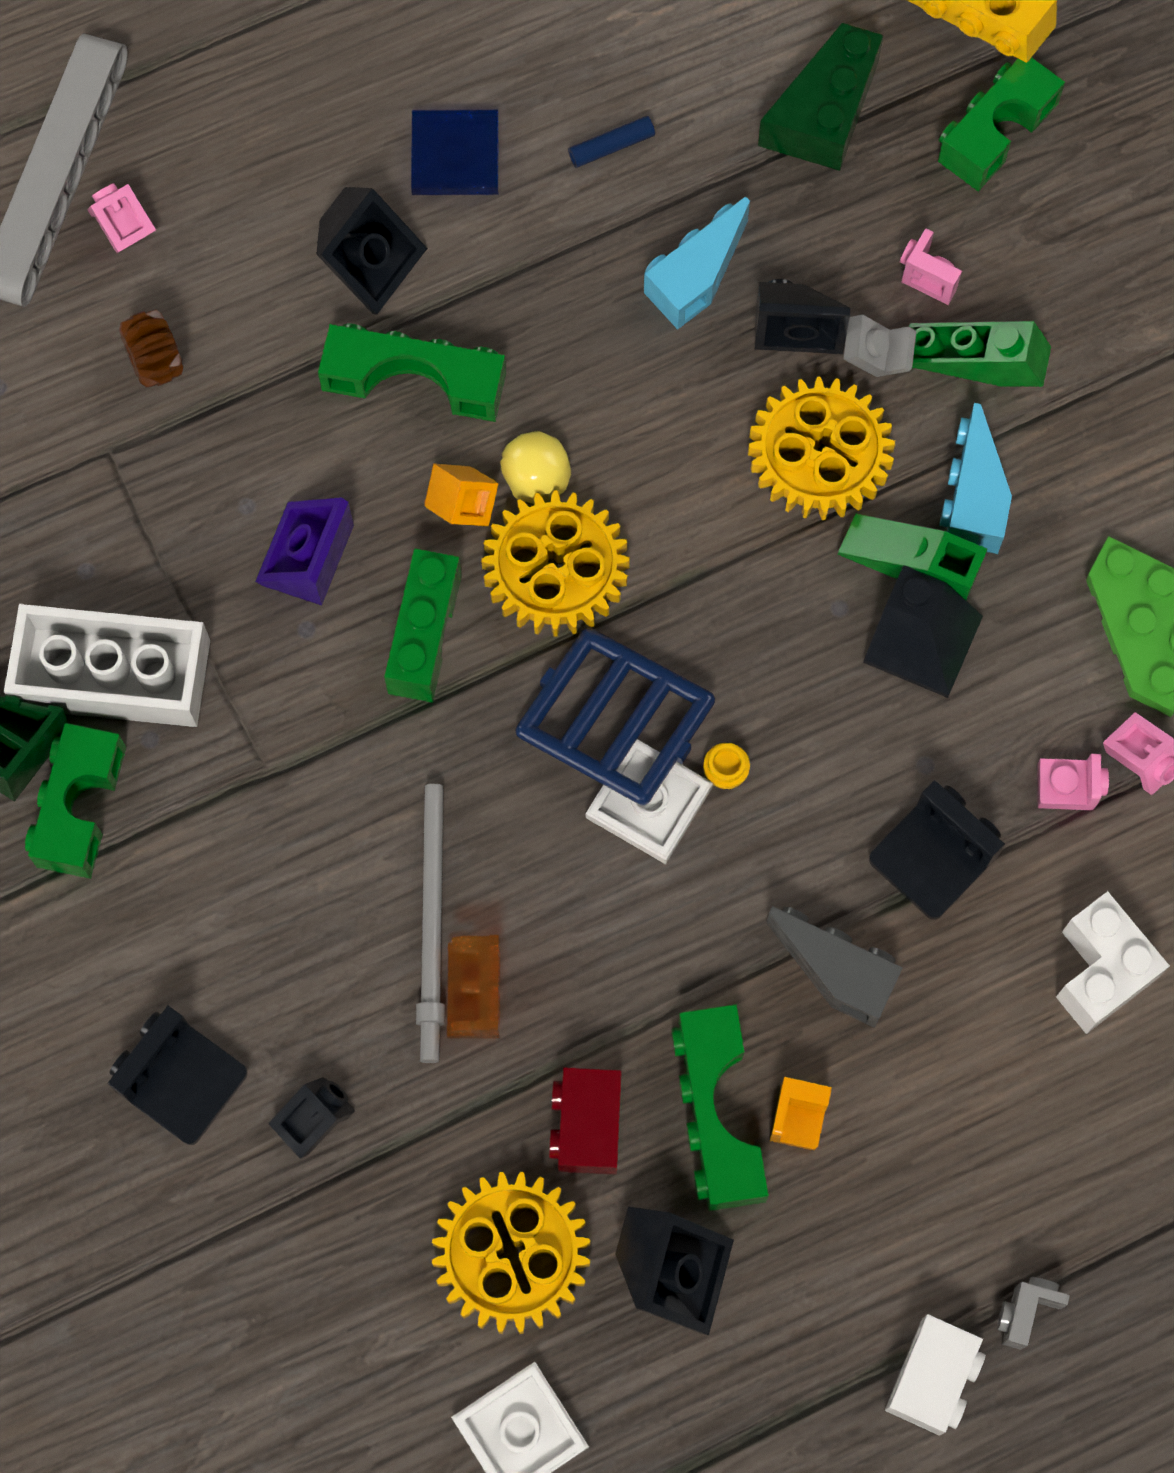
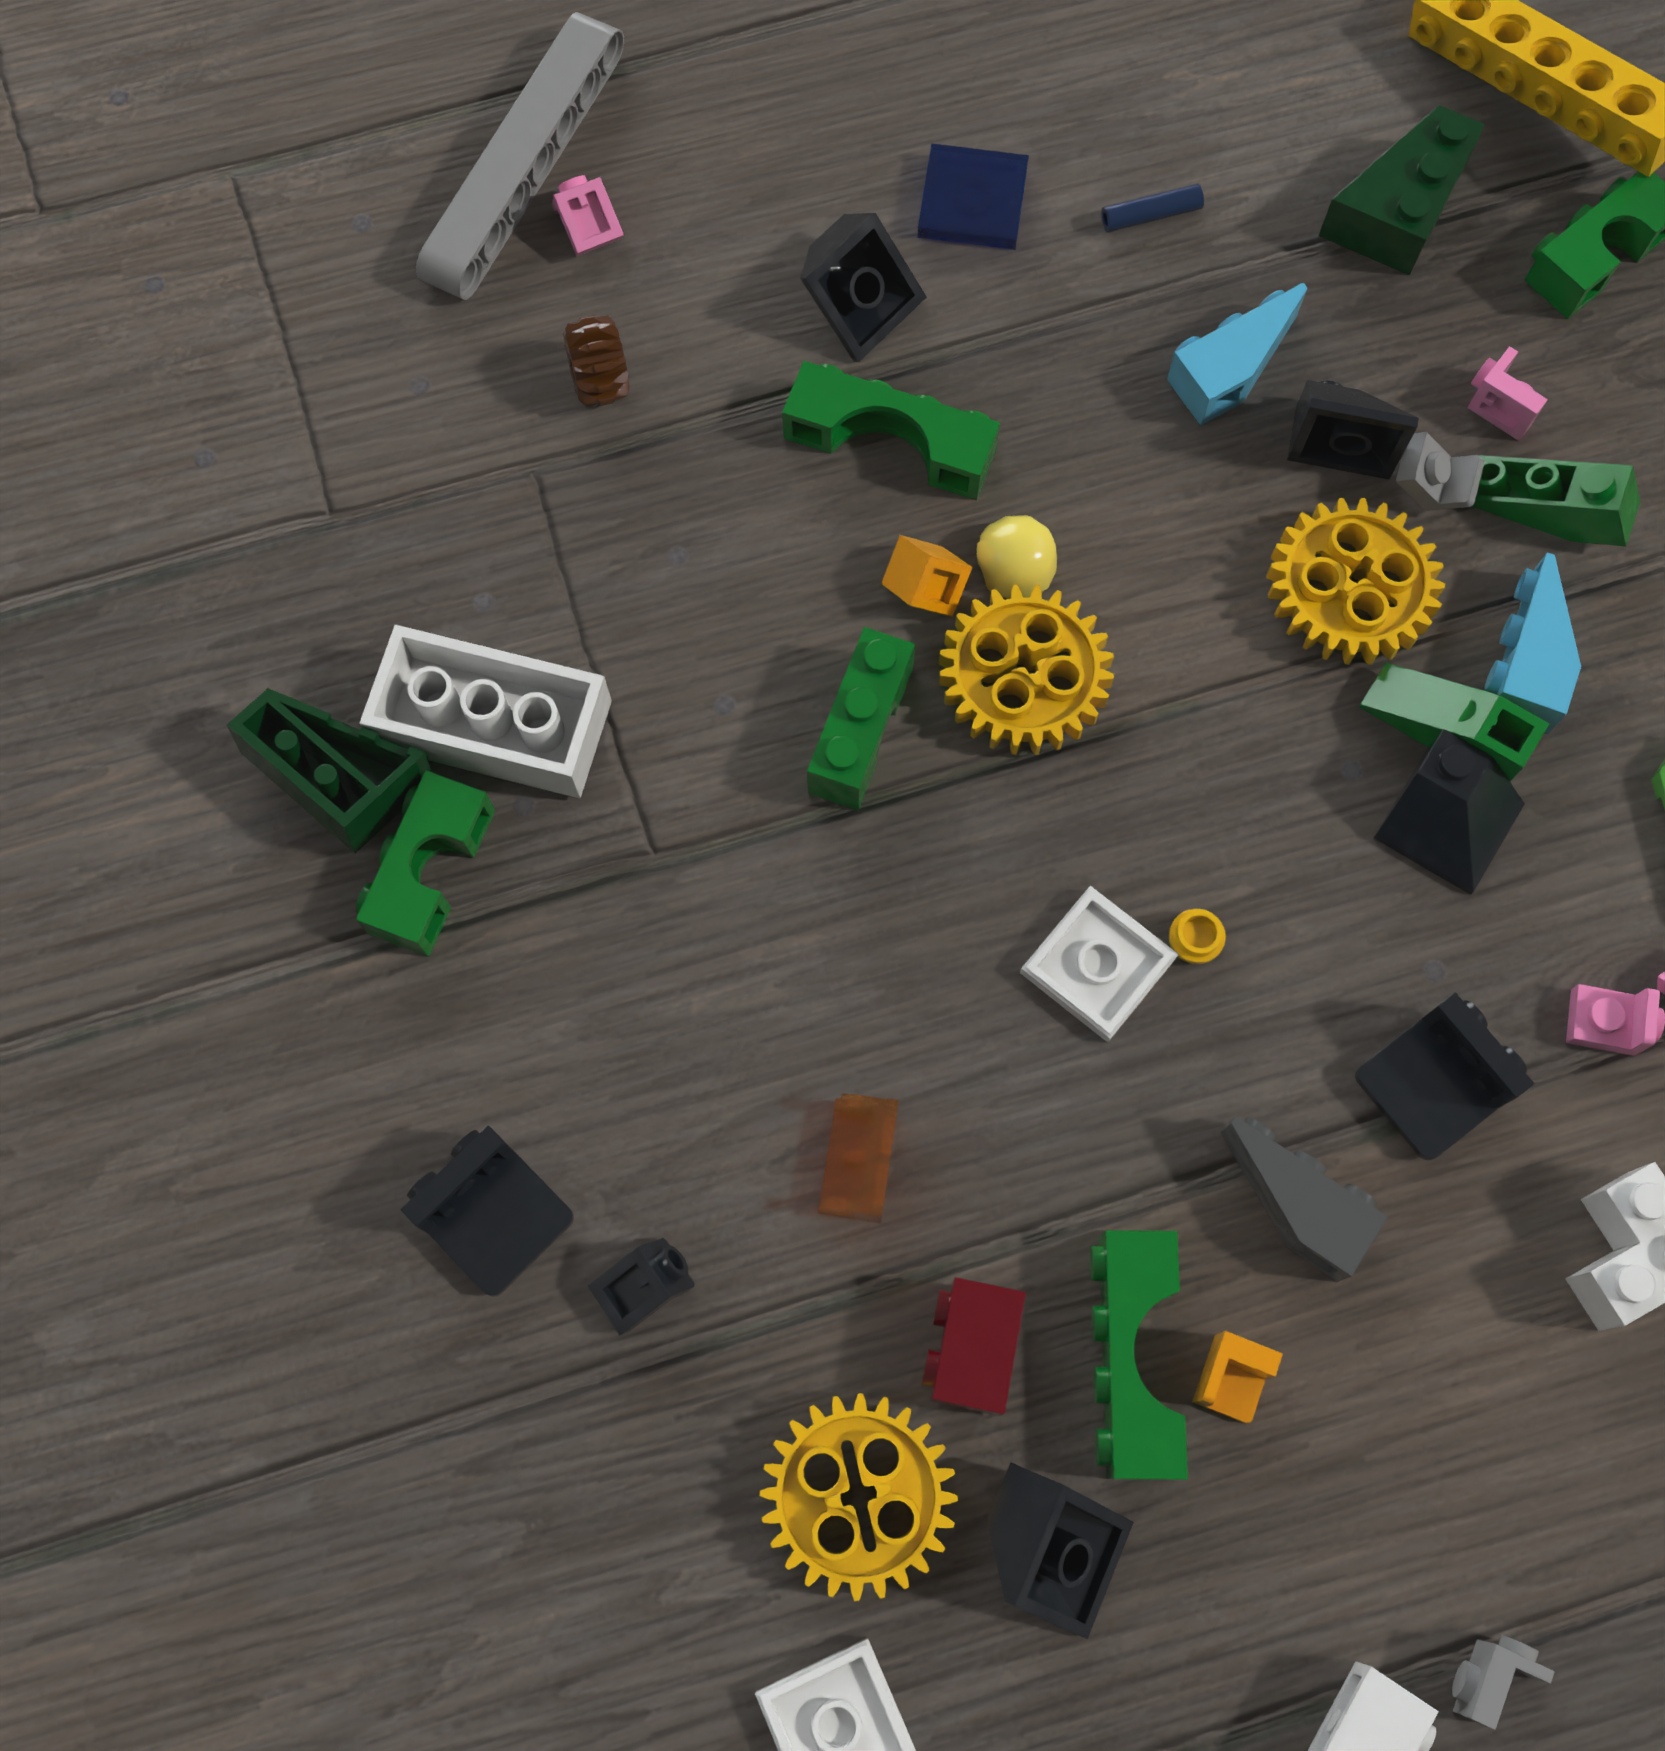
camera: 10 degrees right, 0 degrees up
(307, 548) = (740, 611): dark purple slope -> none
(430, 1012) = (803, 1179): light grey bar -> none
(606, 771) = (1052, 921): dark blue bar -> none

